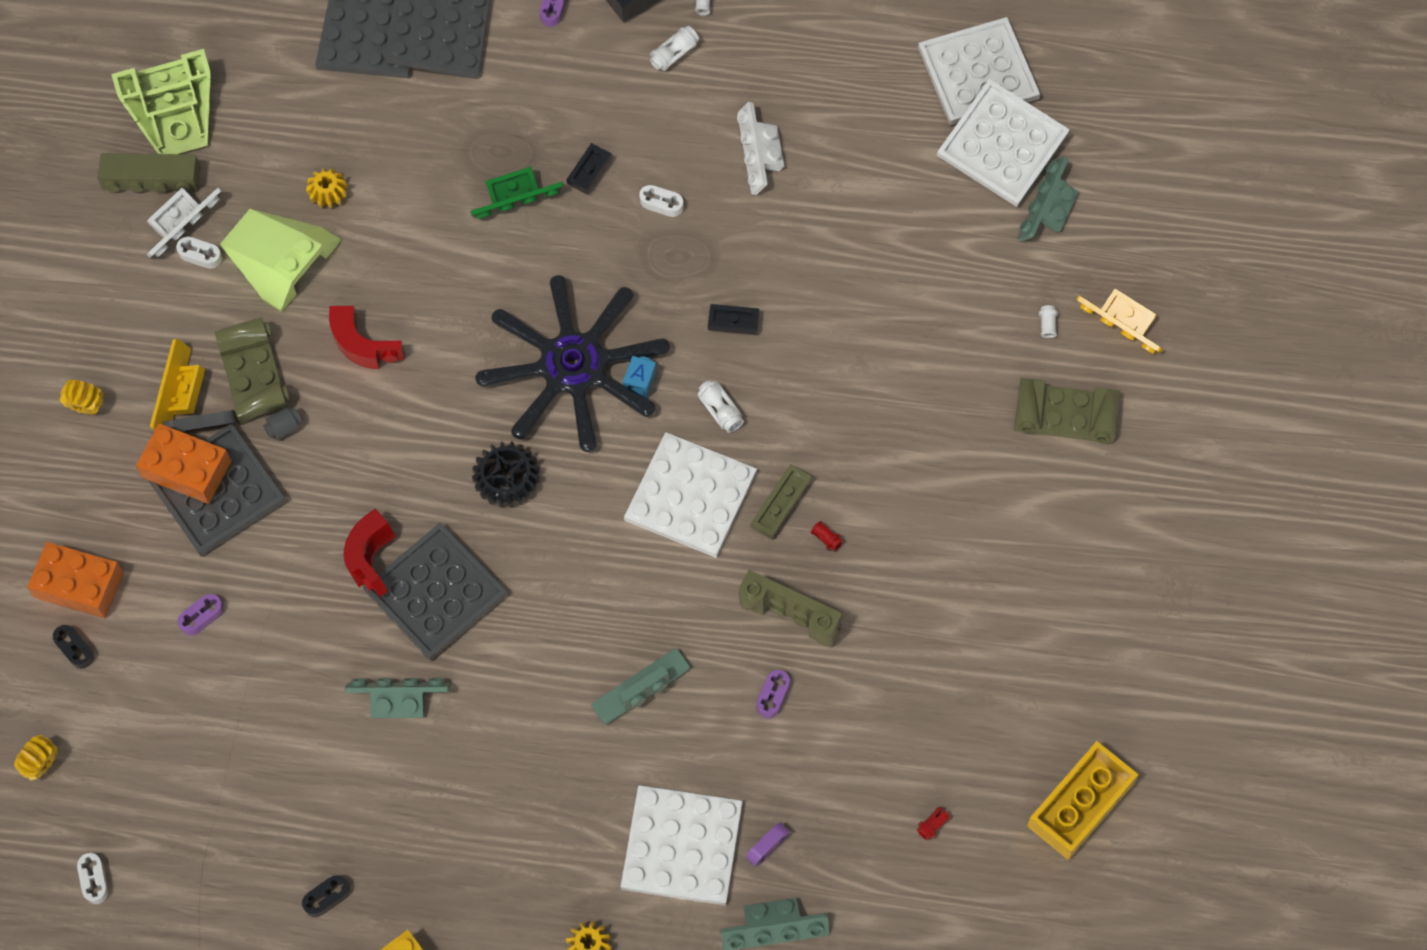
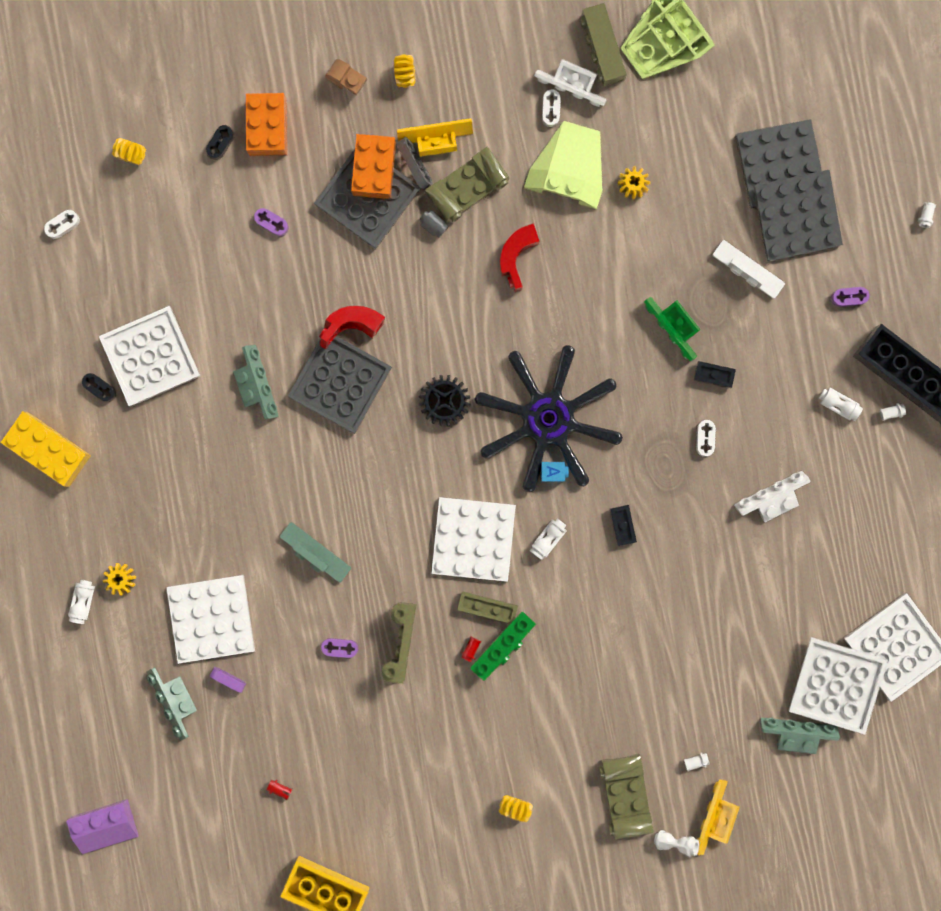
camera: 70 degrees right, 20 degrees up
(53, 468) = (345, 77): none -> medium nougat brick
(310, 816) = (149, 356): none -> white plate
(479, 98) = (747, 268): none -> white bracket
(834, 491) = (499, 650): none -> green bracket
(1042, 538) = (515, 808): none -> yellow gear
(1144, 358) = (685, 845): none -> white piece

